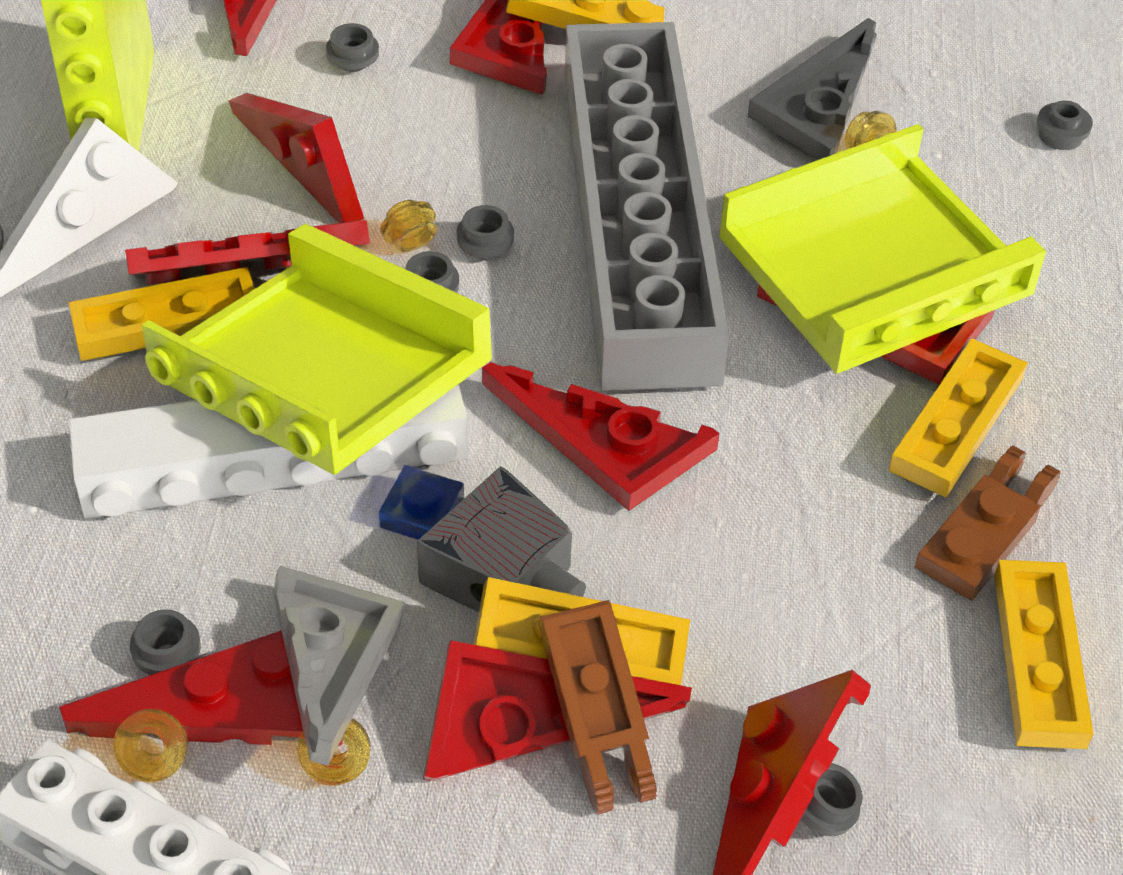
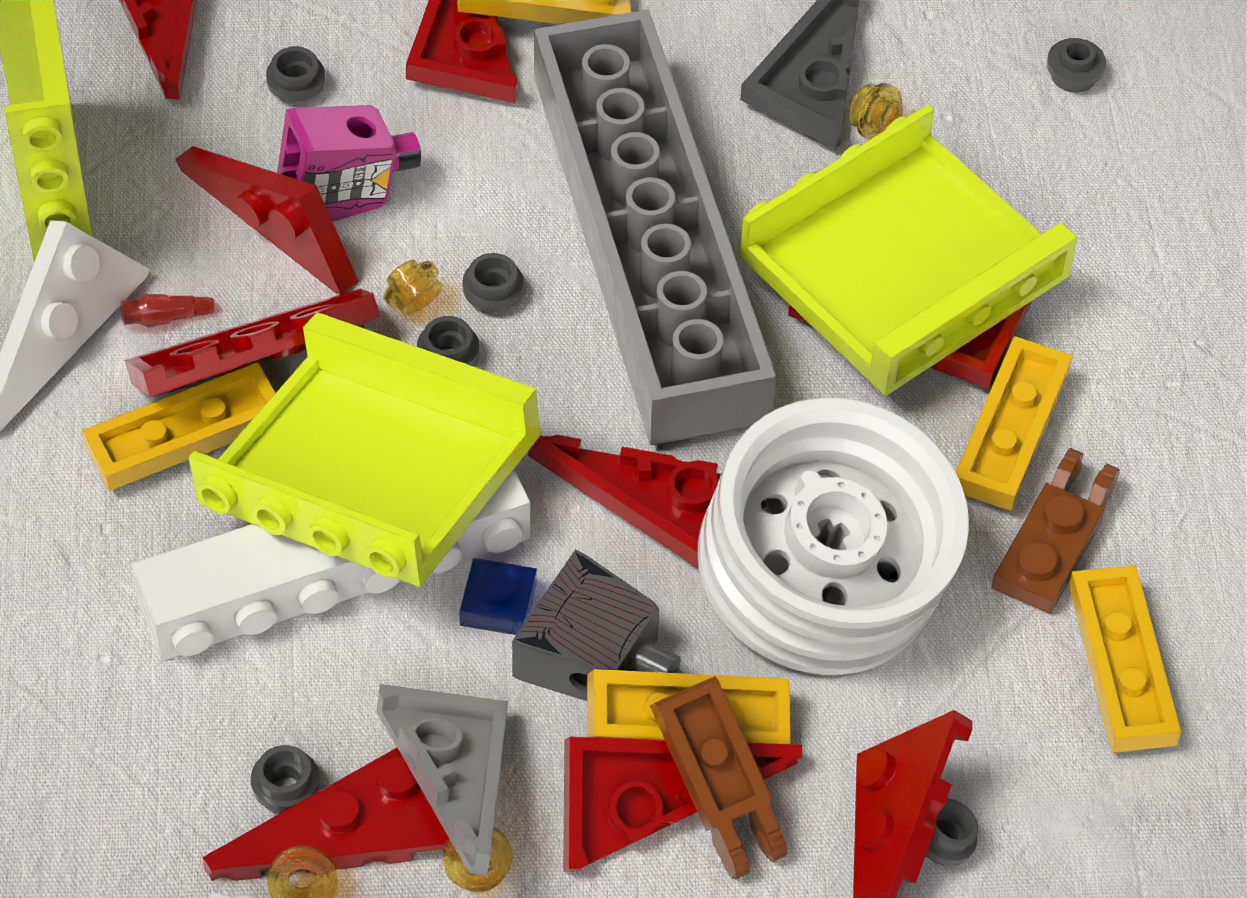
camera: 10 degrees left, 5 degrees up
(178, 216) = (160, 309): none -> clear red piece
(373, 109) = (345, 155): none -> dark pink torso
(761, 433) = (832, 536): none -> white wheel

